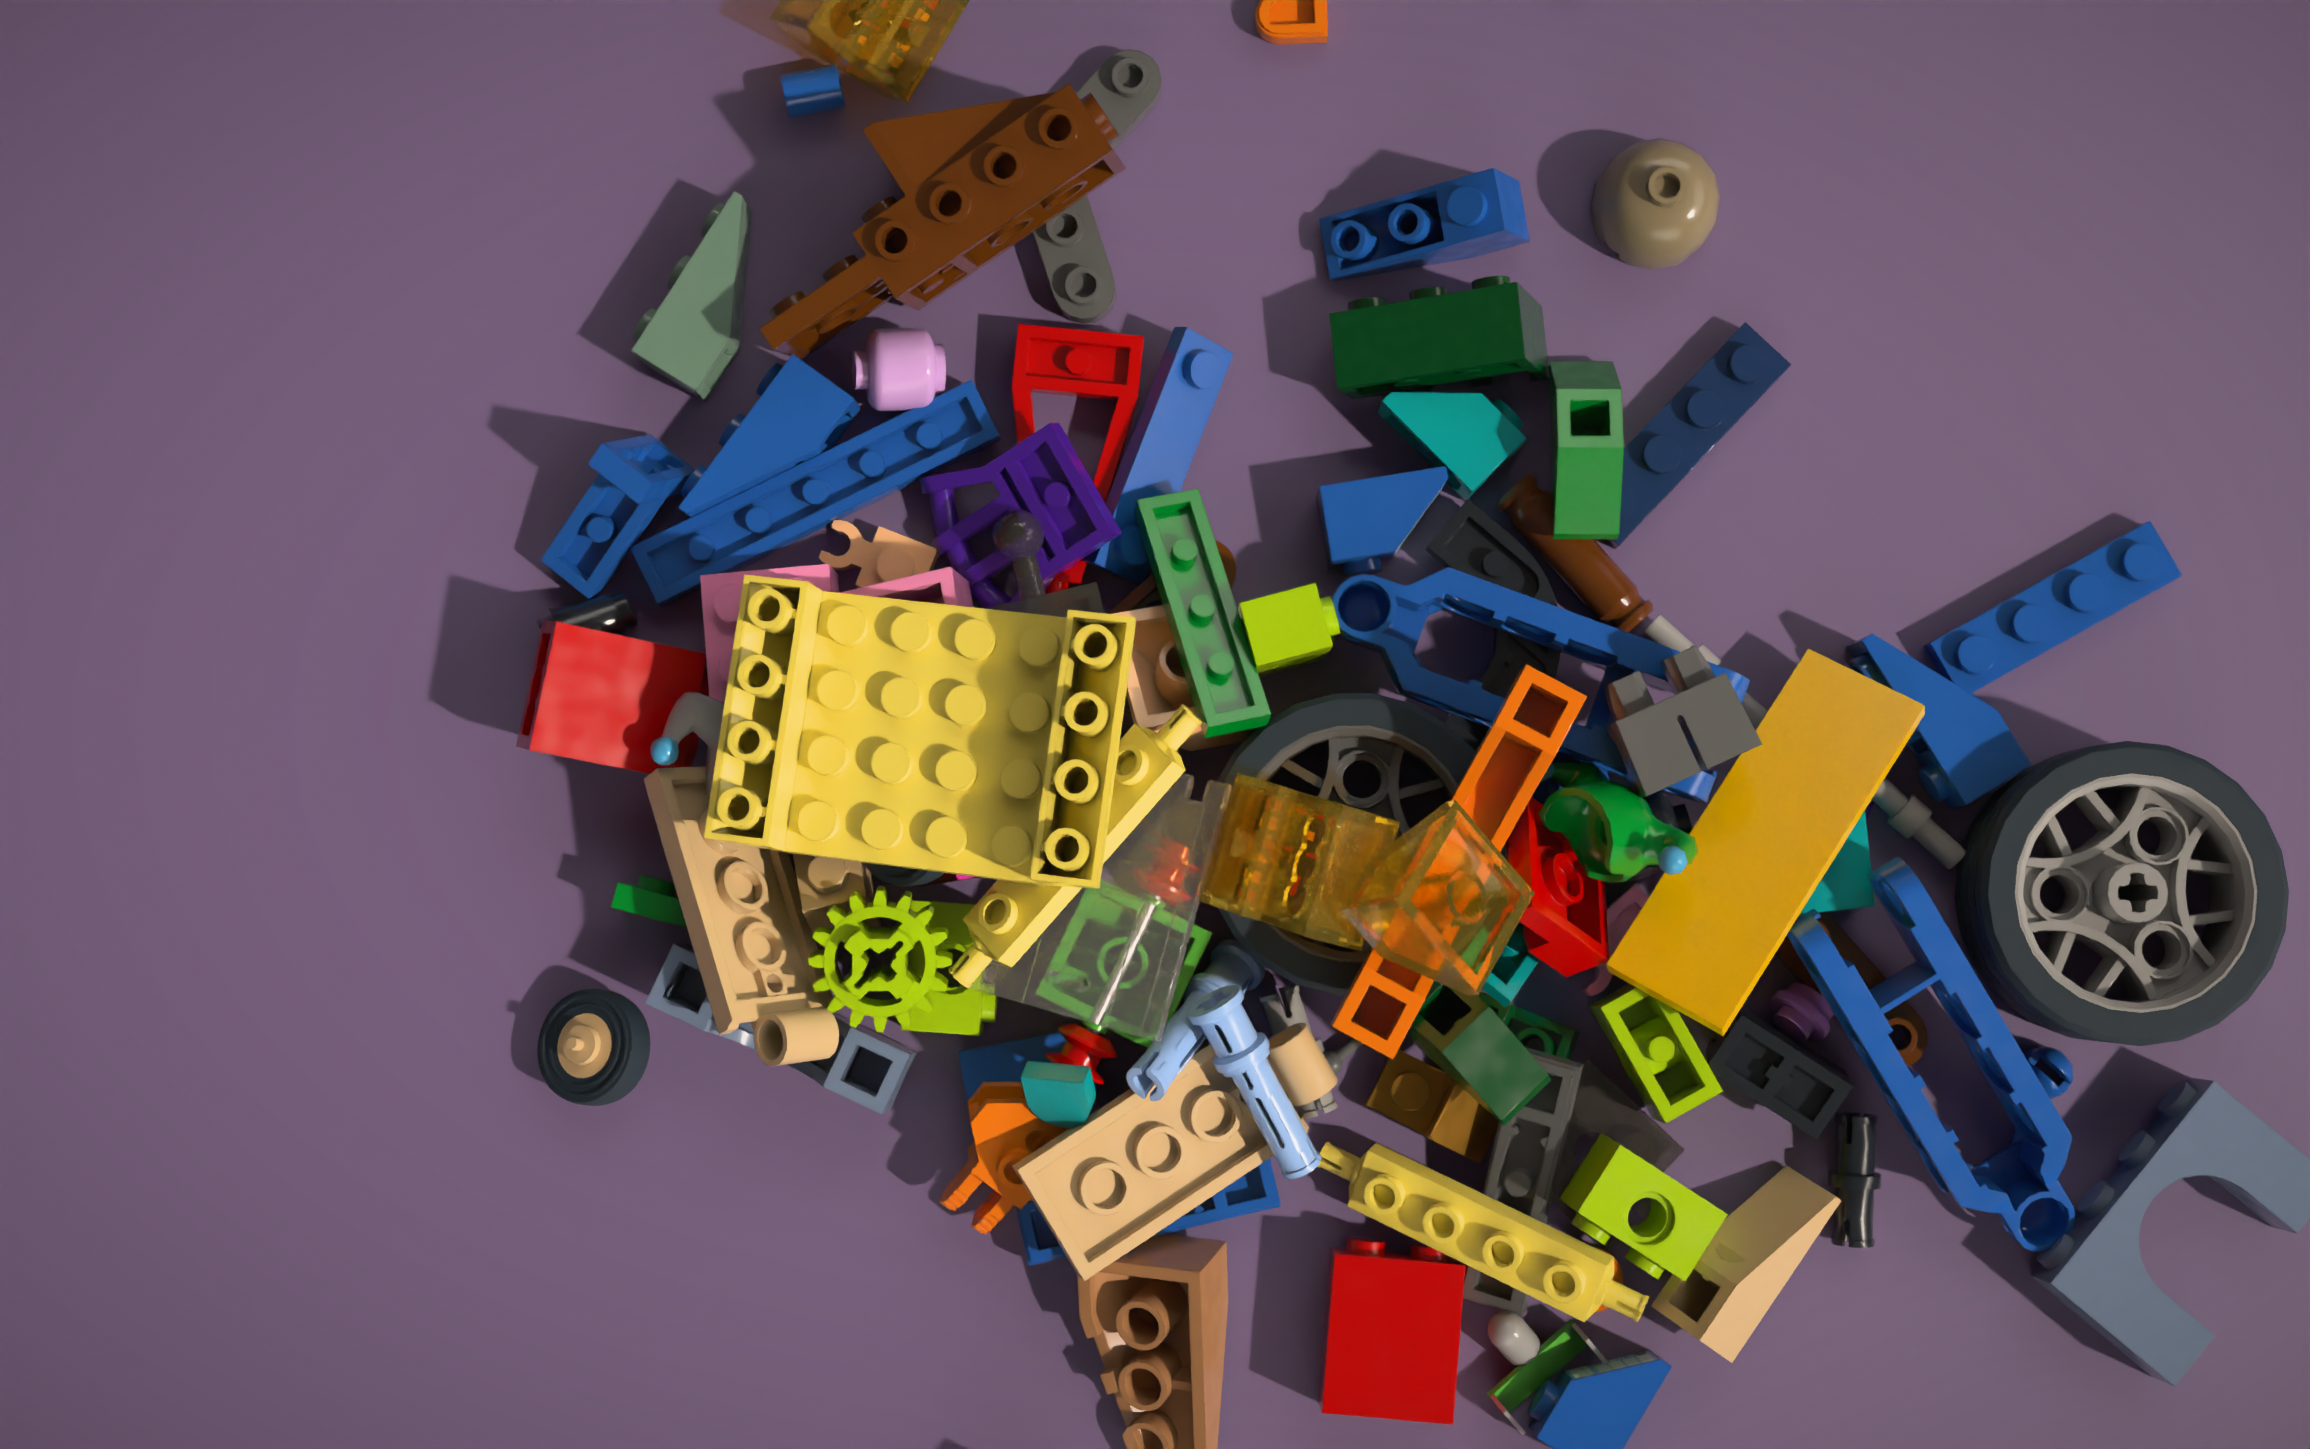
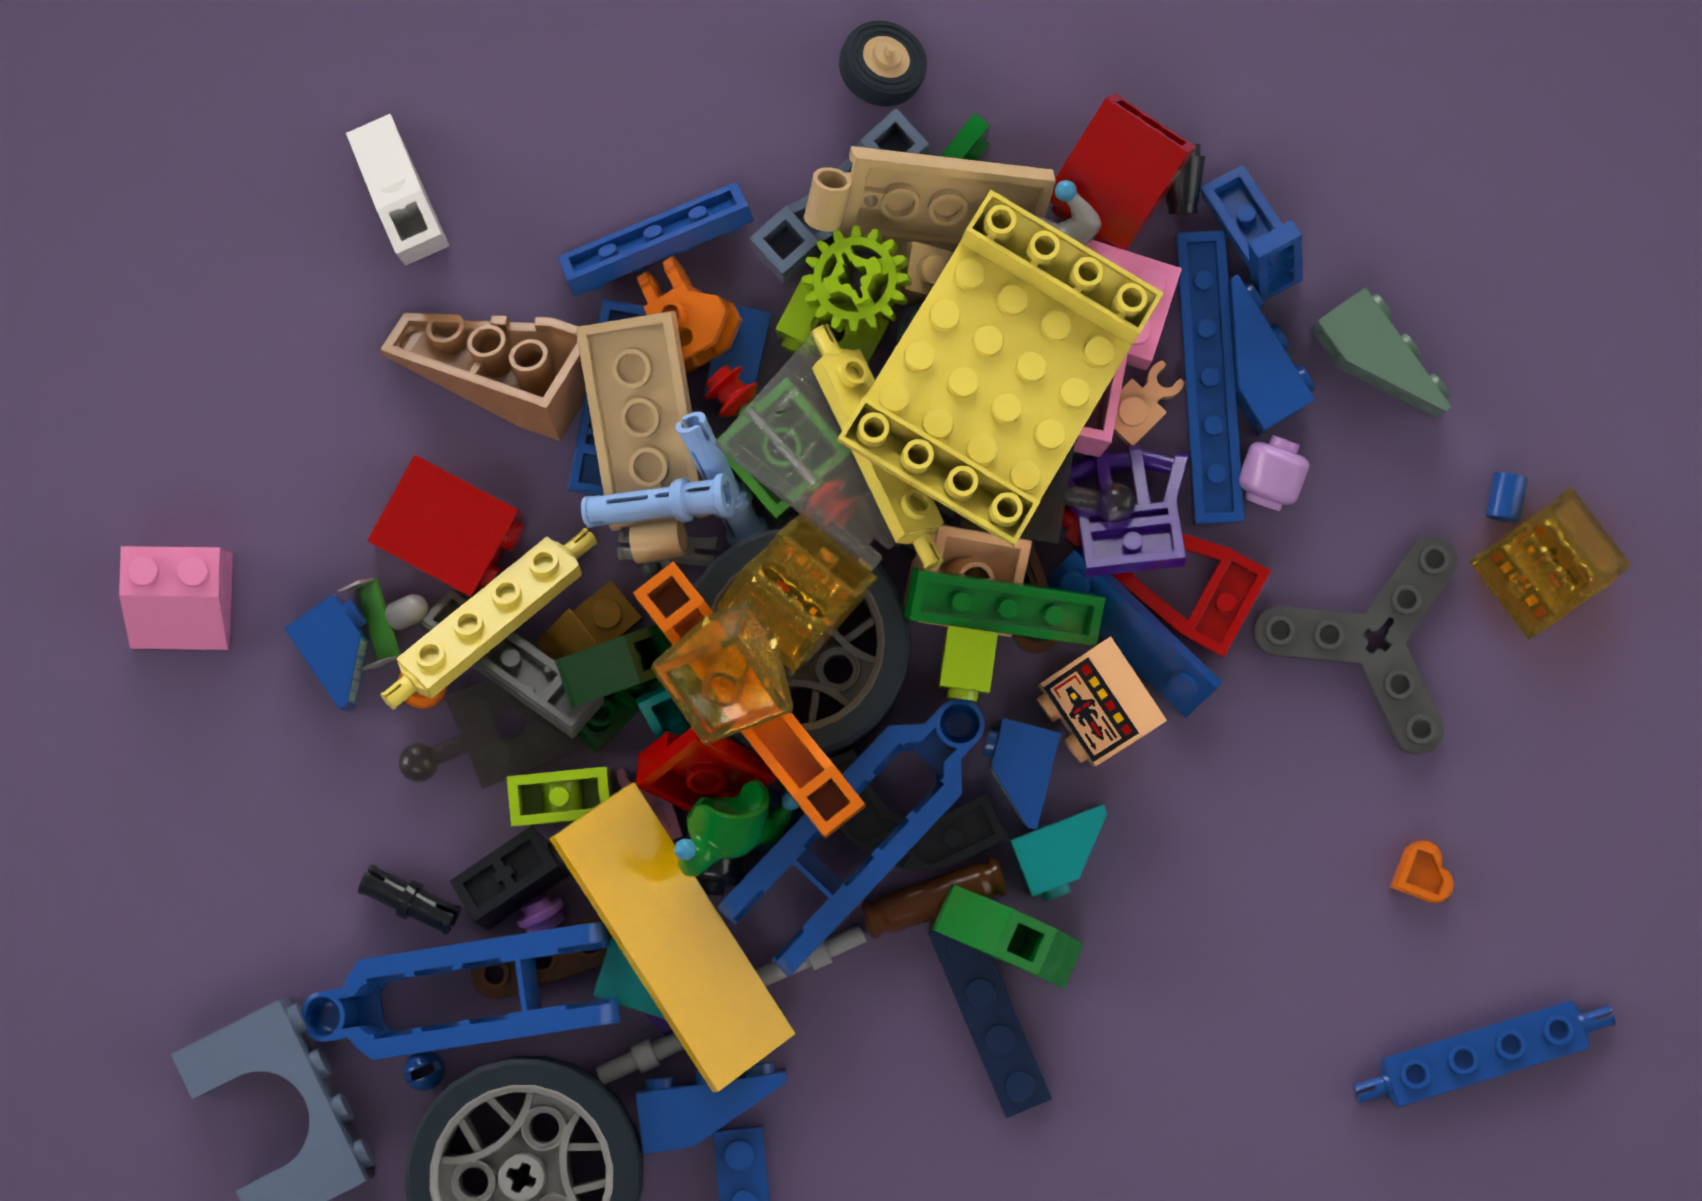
camera: 110 degrees right, 0 degrees up
(927, 1233) = (655, 239): none -> blue plate
(971, 191) = (1376, 565): reddish brown wedge -> none
(1059, 1092) = (711, 363): teal tile -> none
(1265, 454) = (1099, 704): none -> light nougat piece
(1427, 226) = (1219, 897): blue slope -> none
(1438, 339) = (1131, 868): dark green wedge -> none
(1655, 203) = (1167, 1073): dark tan cylinder -> none
(1678, 1219) = (483, 726): lime brick -> none
(1679, 734) = (780, 925): dark grey hips -> none
(1748, 1262) = (386, 794): tan slope -> none

